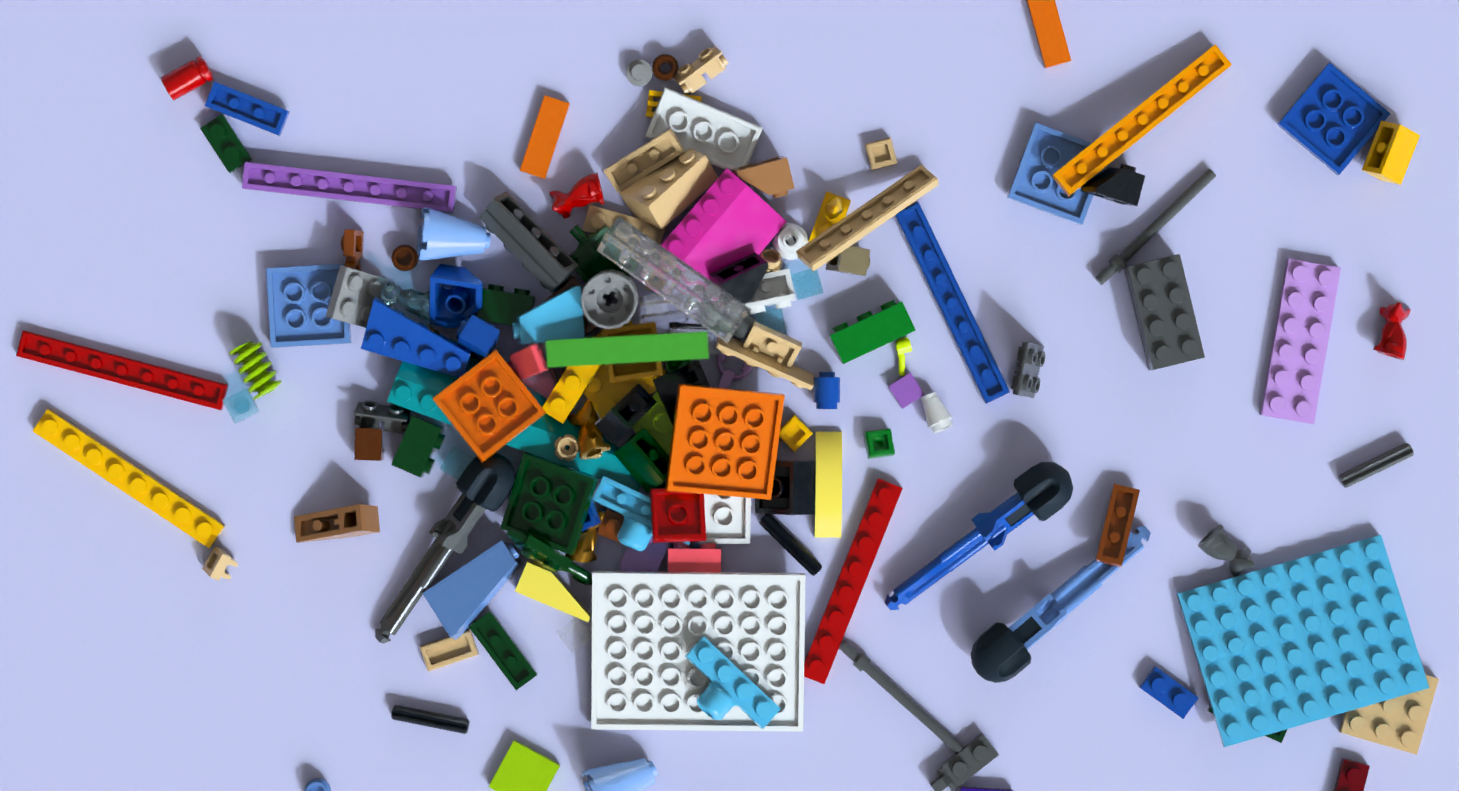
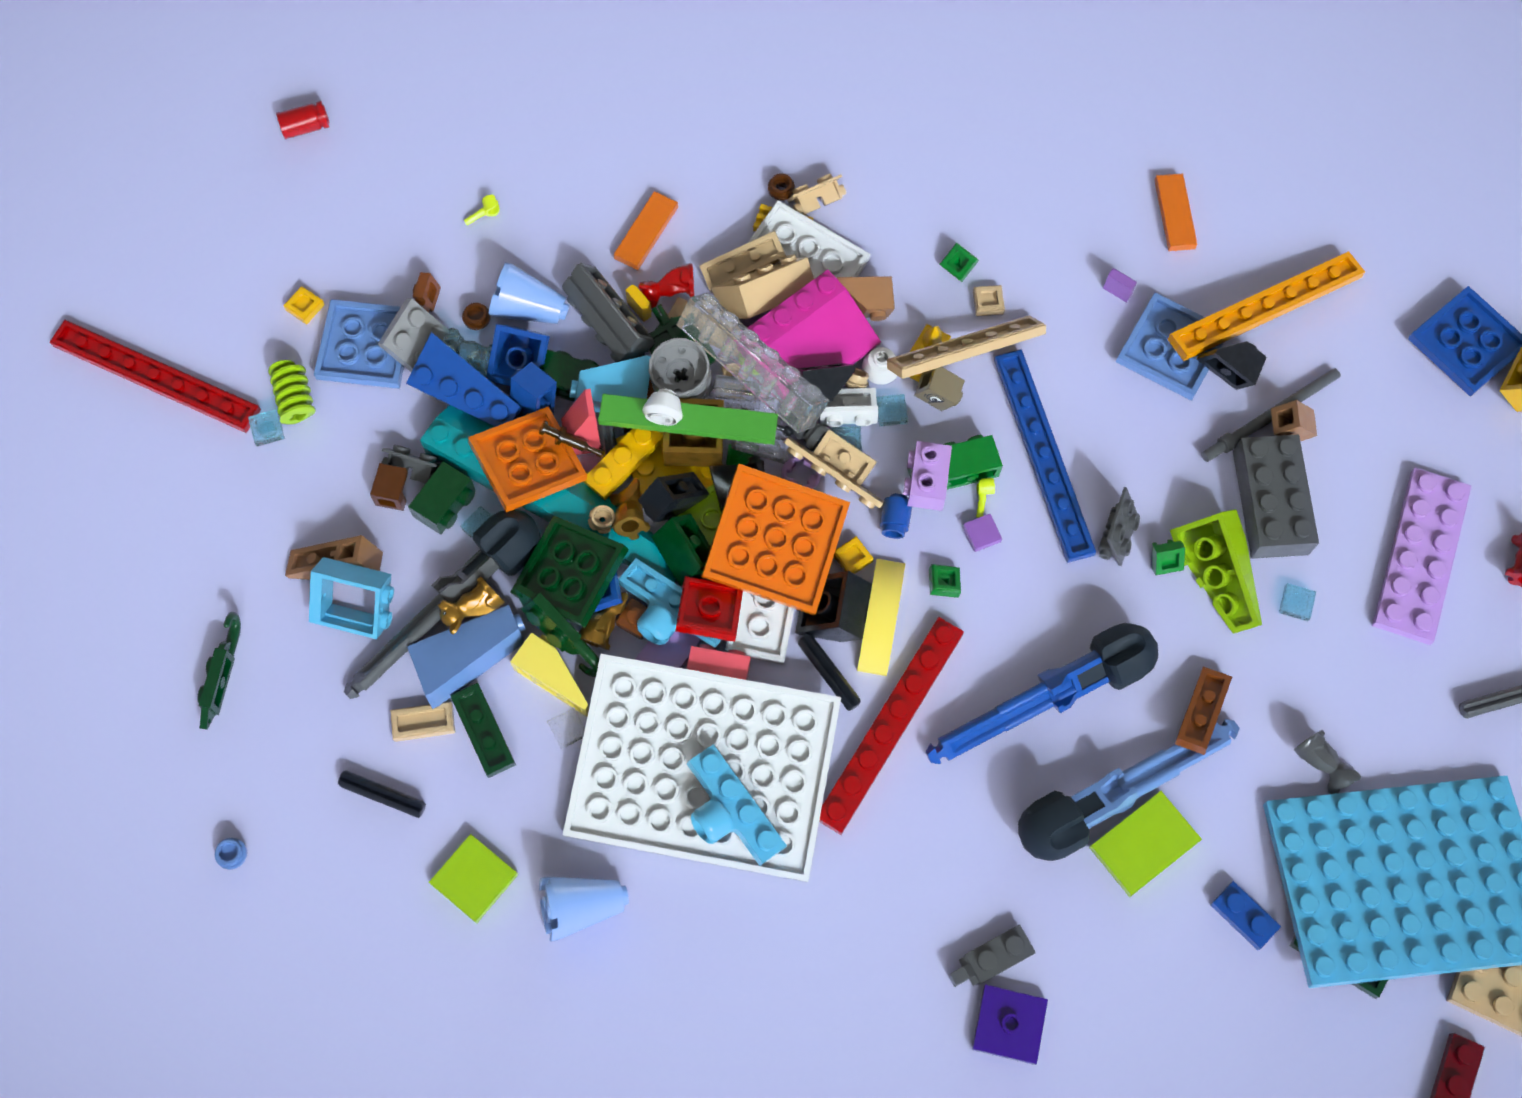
camera: 10 degrees right, 20 degrees down
(128, 478) = (128, 483): yellow plate -> none
(217, 563) = (193, 581): tan tile -> none
(226, 143) = (325, 186): dark green plate -> none
(240, 273) = (304, 305): none -> yellow tile
(247, 108) = (354, 156): blue plate -> none
(263, 638) = (218, 672): none -> dark green plate
(348, 187) = (432, 240): medium lavender plate -> none
(363, 572) = (344, 618): none -> medium azure window
(391, 138) = (490, 208): none -> neon yellow hand
(474, 544) = (473, 603): none -> pearl gold animal
(516, 382) = (569, 439): none -> dark brown piece
(554, 219) = (638, 302): none -> yellow tile
(604, 350) = (663, 408): none -> white cone
(639, 72) = (754, 187): light grey plate -> none
(847, 120) = (959, 262): none -> green tile
(850, 357) = (929, 475): none -> lavender brick
(863, 663) = (890, 817): dark grey bar -> none
(936, 413) = (1012, 560): white cone -> none
(1002, 119) = (1119, 285): none -> medium lavender tile
(1073, 387) = (1168, 557): none -> green tile
(1080, 646) = (1145, 843): none -> lime tile
(1120, 379) = (1221, 563): none -> lime wedge
(1175, 237) = (1294, 419): none -> medium nougat brick
(1192, 406) = (1297, 602): none -> clear light blue tile

